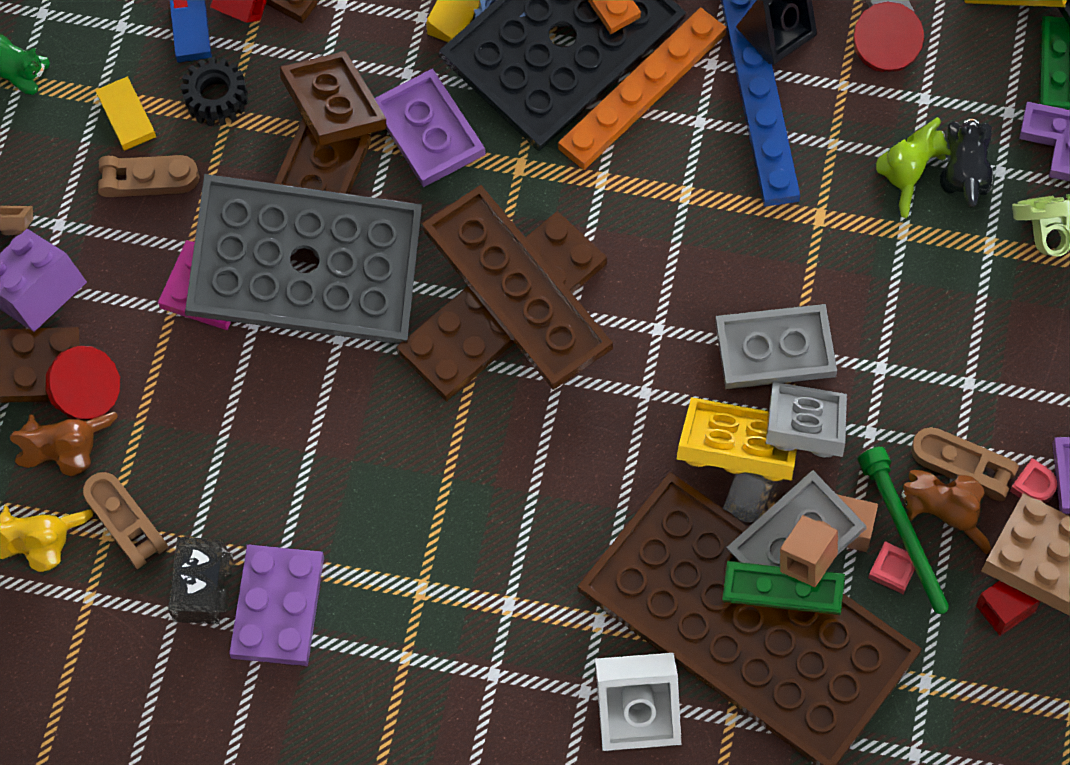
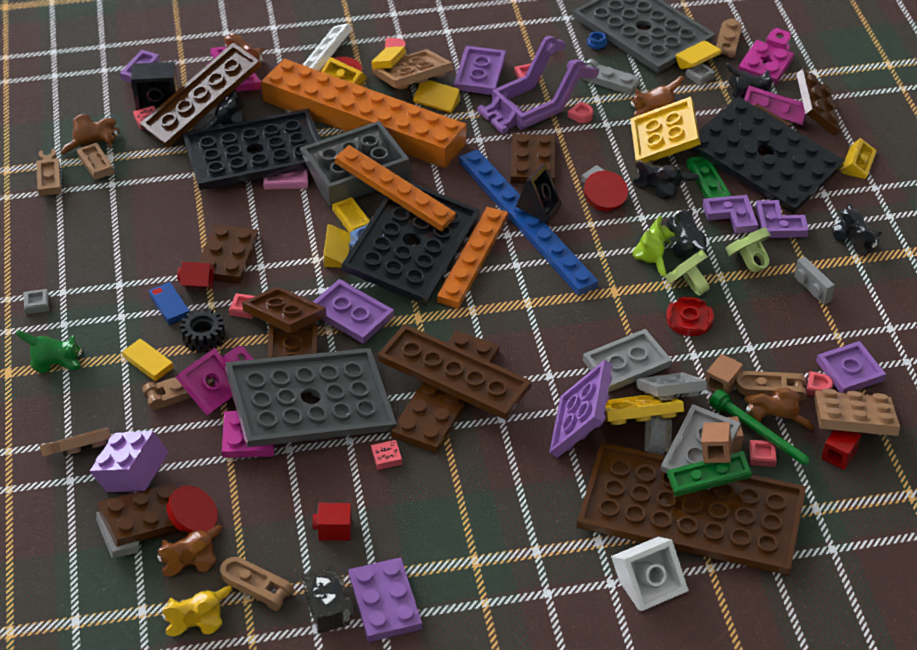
camera: 25 degrees left, 20 degrees down
(193, 161) = (210, 366): none -> dark pink plate
(258, 465) = (333, 521): none -> red brick
(284, 56) = (236, 306): none -> coral tile
(375, 381) = (386, 454): none -> coral tile
(659, 416) = (581, 409): none -> medium lavender plate
(899, 422) = (723, 374): none -> nougat brick
(906, 300) = (689, 316): none -> red tile
(935, 225) = (691, 273): none -> yellowish green tile
(987, 44) = (663, 178): none -> black animal

